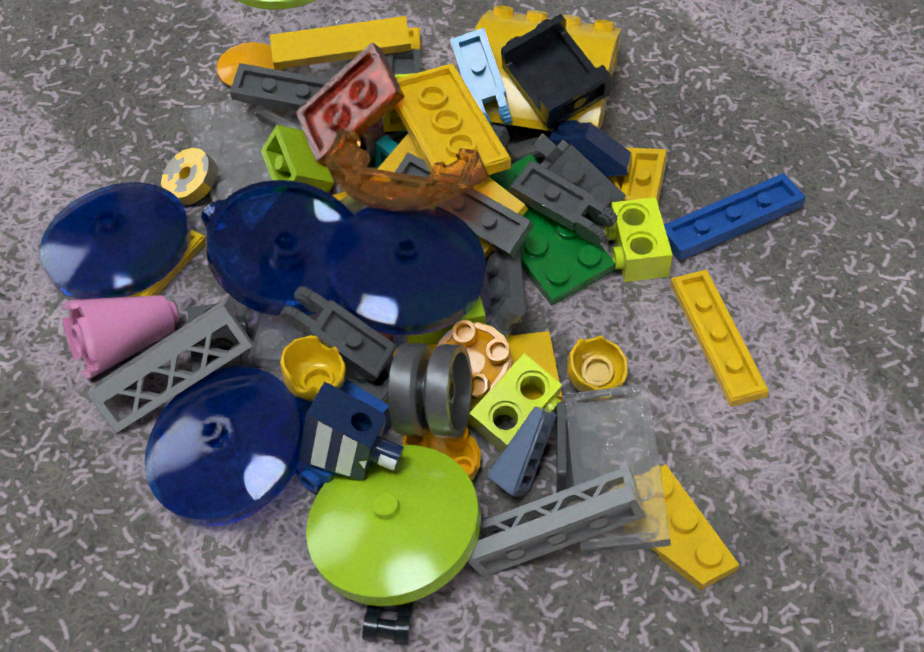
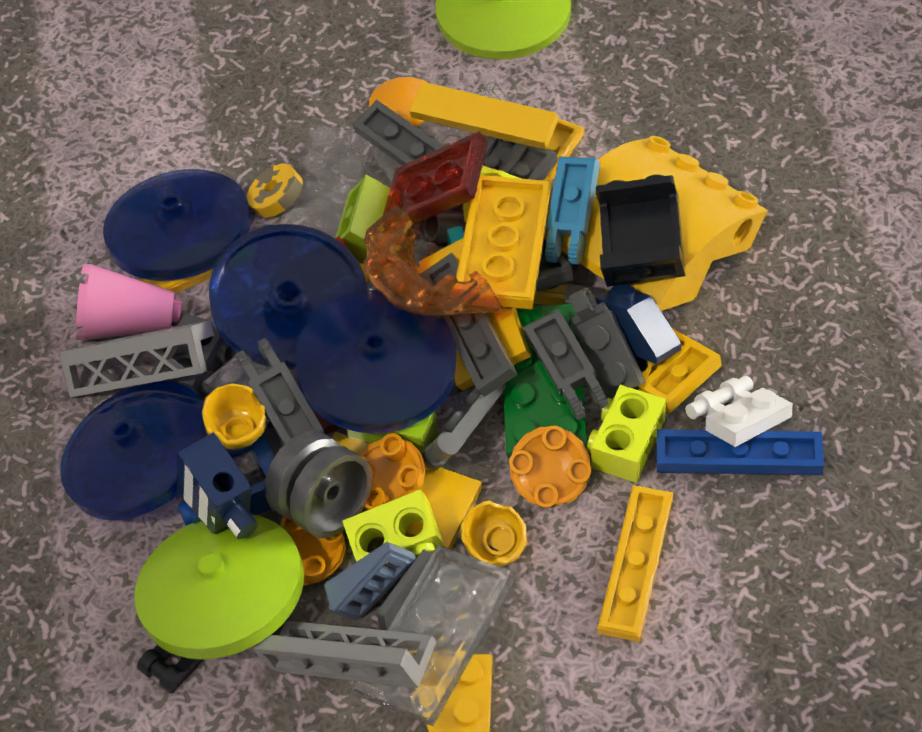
camera: 35 degrees right, 0 degrees up
(598, 292) = (549, 466): none -> light orange dish
(711, 187) = (746, 413): none -> white plate

